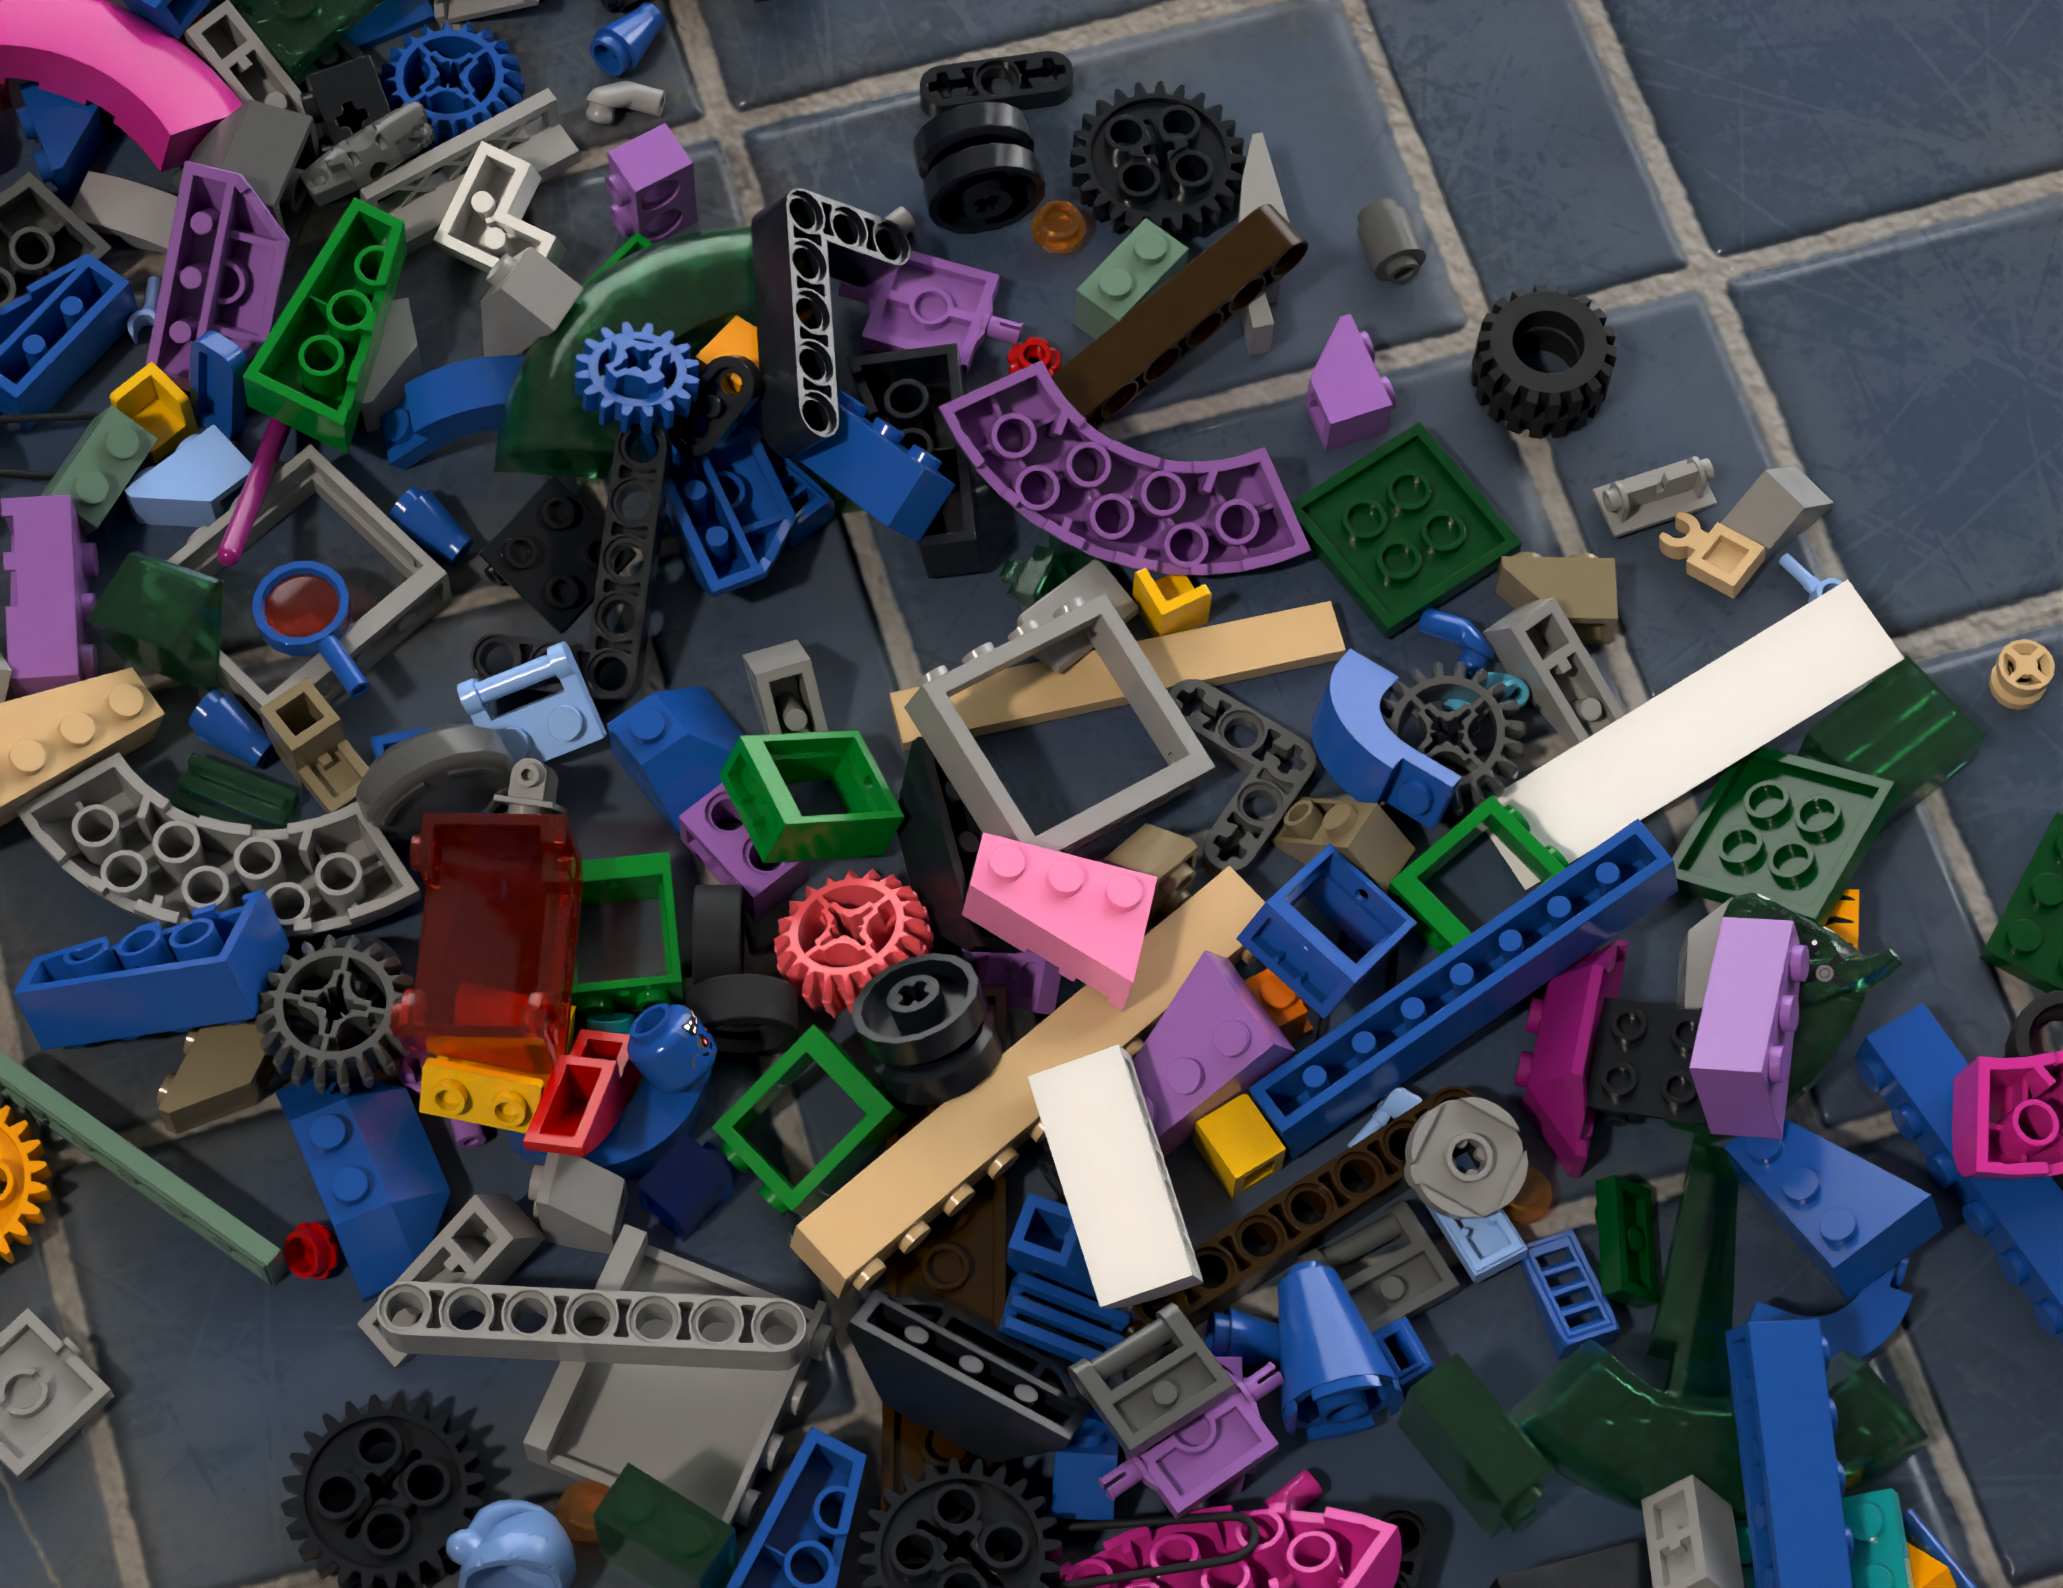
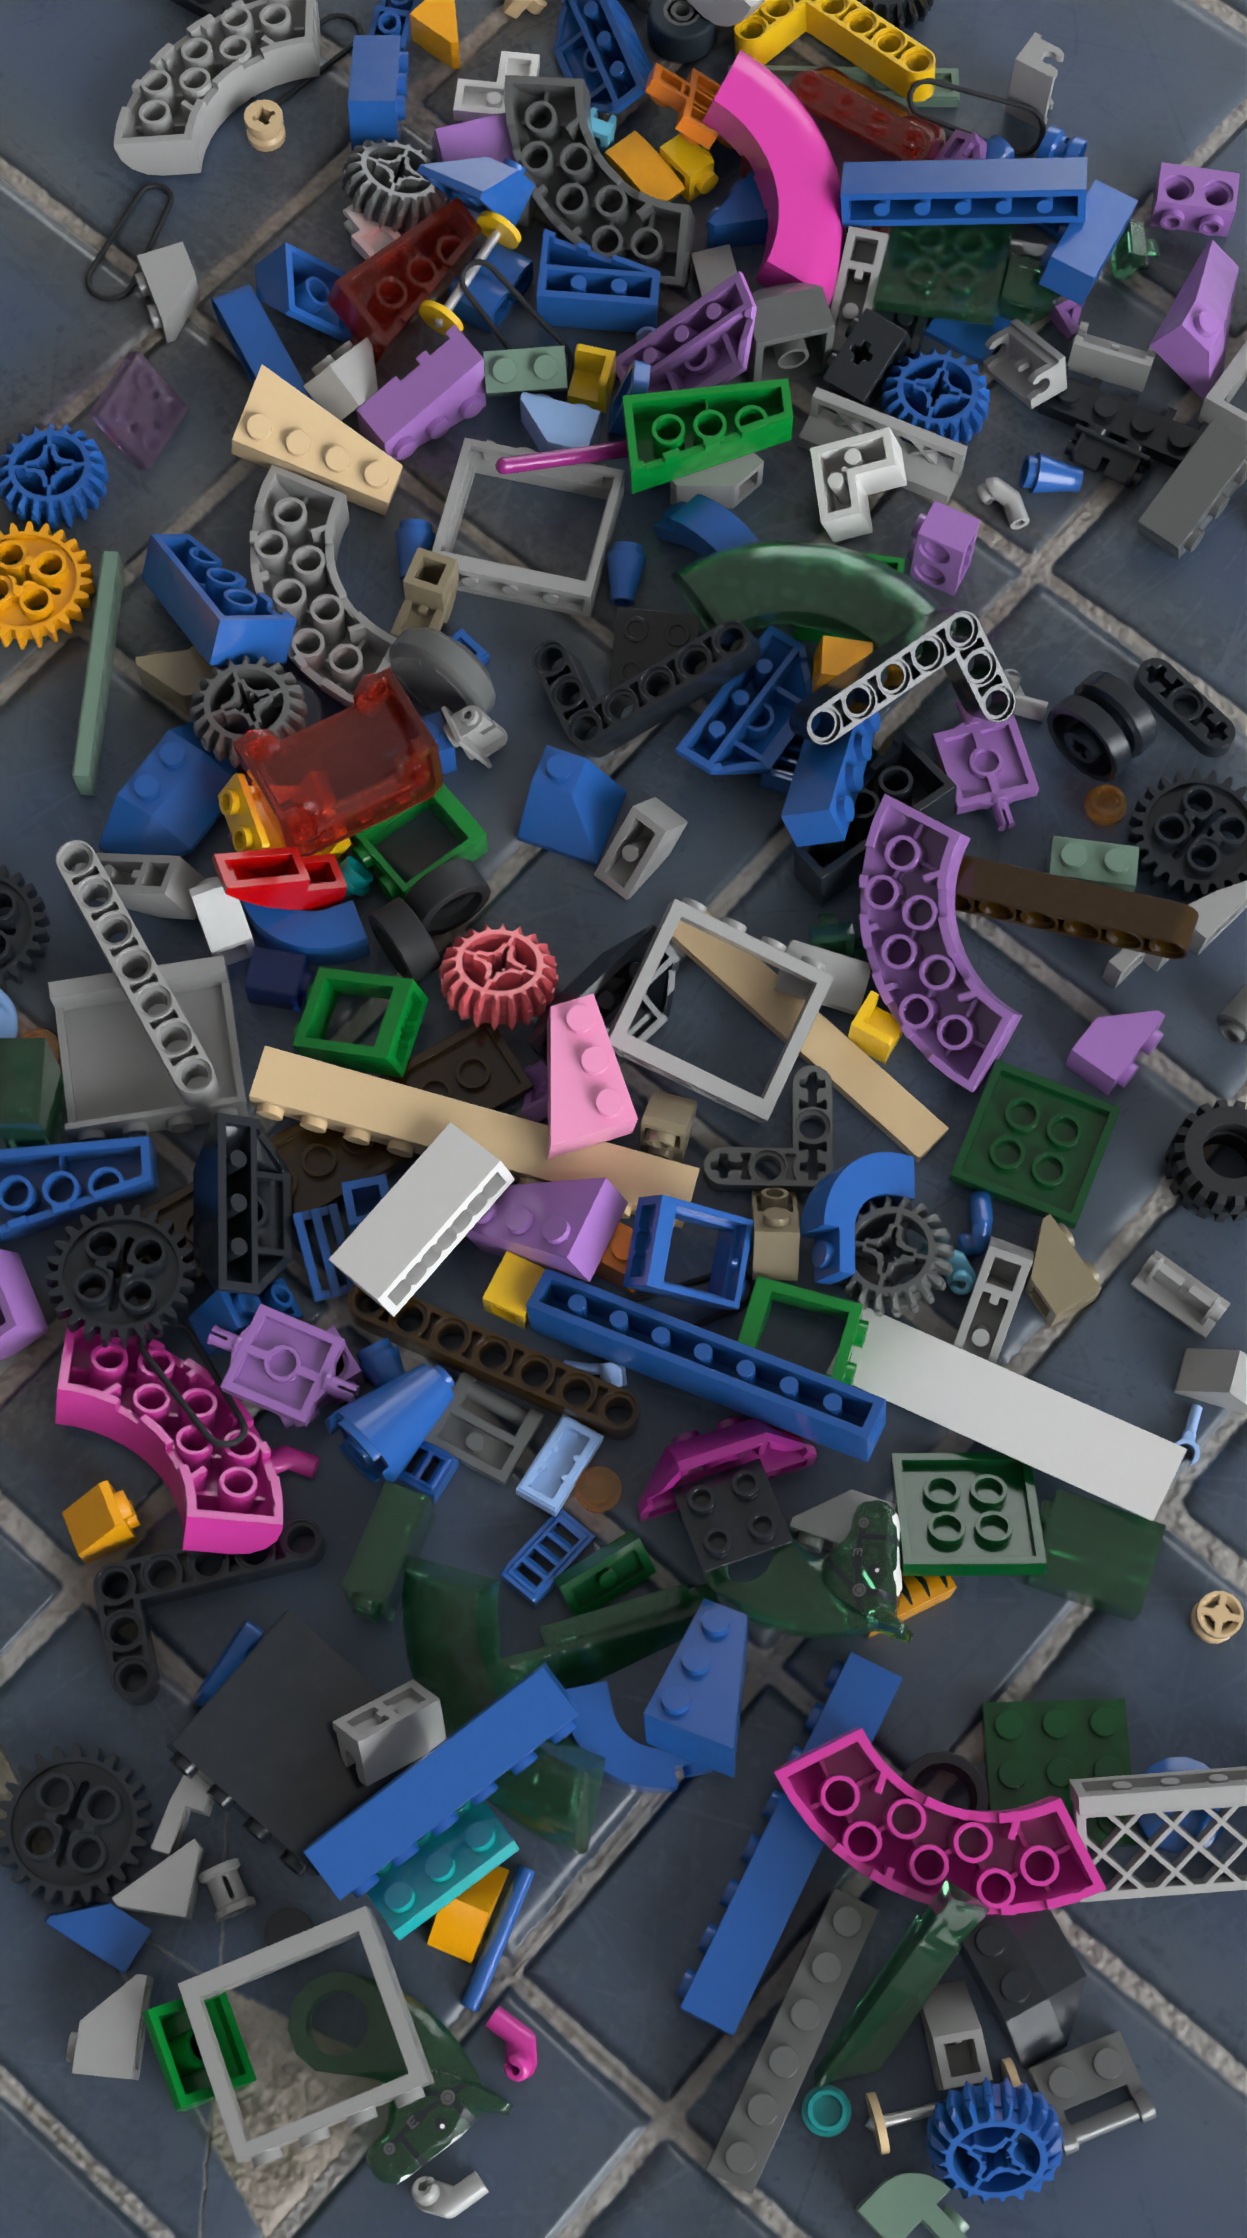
camera: 60 degrees right, 5 degrees up
(163, 619) = (446, 461): clear green slope -> none
(237, 779) = (367, 552): clear green tile -> none
(306, 612) = (505, 535): piece -> none
(311, 1251) = (104, 796): red plate -> none
(368, 154) = (841, 376): dark grey hinge -> none
(524, 302) = (791, 514): light grey slope -> none
(543, 726) = (525, 713): light blue plate -> none
(636, 377) = (770, 605): blue gear -> none
(671, 1048) = (343, 907): blue head -> none
(717, 404) = (802, 664): black plate -> none
(733, 854) = (520, 876): medium lavender brick -> none
(757, 787) = (597, 863): green window -> none
(928, 1029) = (451, 1047): black wheel -> none
(1034, 348) = (990, 836): red plate -> none
(1161, 1395) = (287, 1329): dark grey plate -> none
(1497, 1147) = (601, 1411): light grey plate -> none
(1715, 558) = (1160, 1361): tan plate -> none
(1749, 1027) = (782, 1557): wedge -> none

